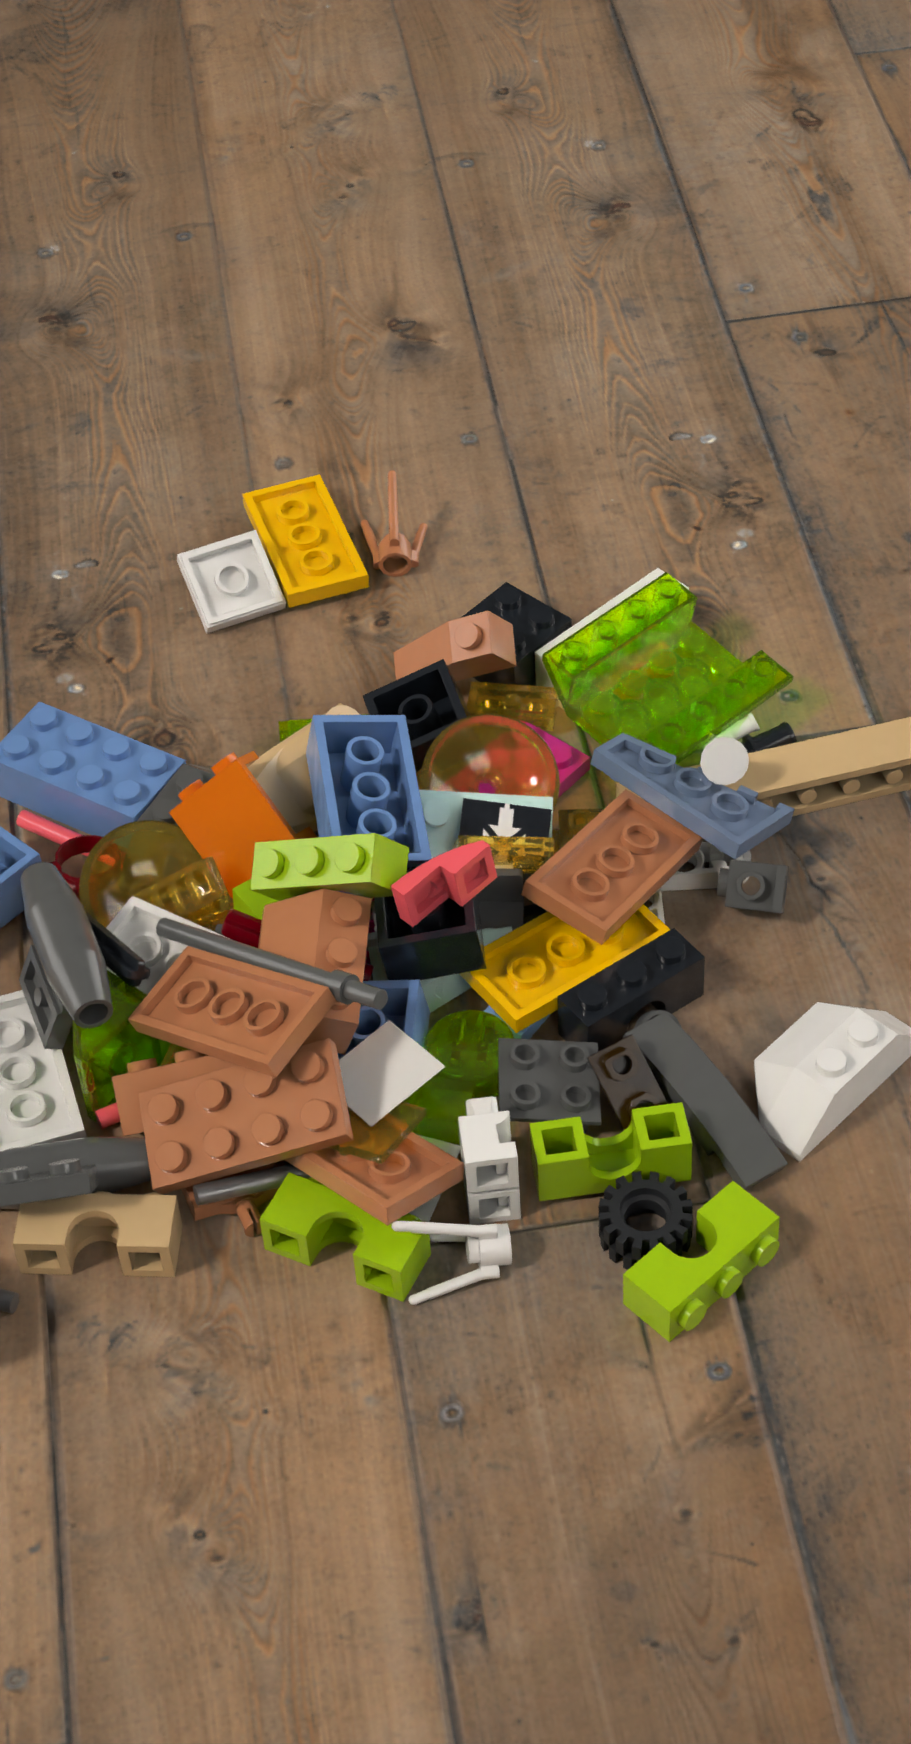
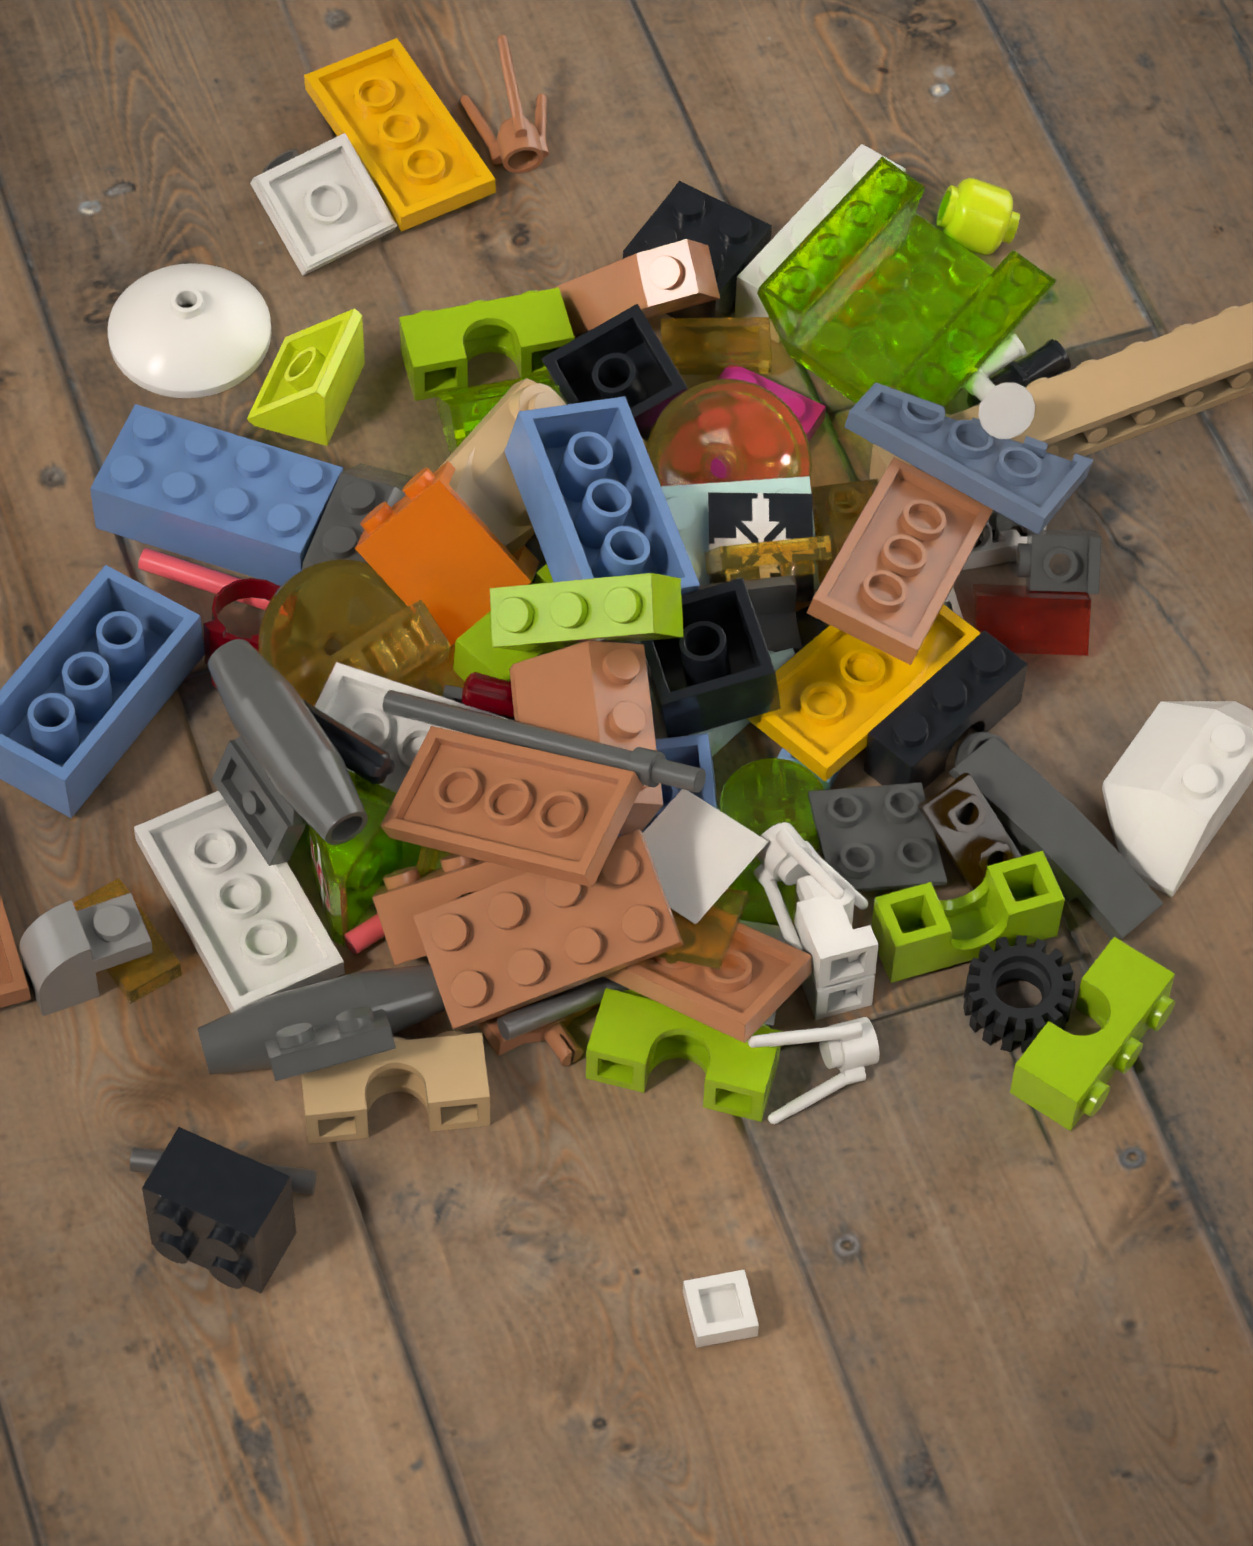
camera: 15 degrees left, 10 degrees up
(108, 663) = (192, 348): none -> white dish
(191, 703) = (312, 379): none -> neon yellow slope
(300, 683) = (444, 340): none -> lime arch
(324, 1449) = (720, 1308): none -> white plate
(452, 875) = (738, 608): coral slope -> none
(462, 1082) = (787, 860): none -> white plant
(725, 930) = (1034, 619): none -> clear red panel
(745, 629) = (978, 215): none -> neon yellow head

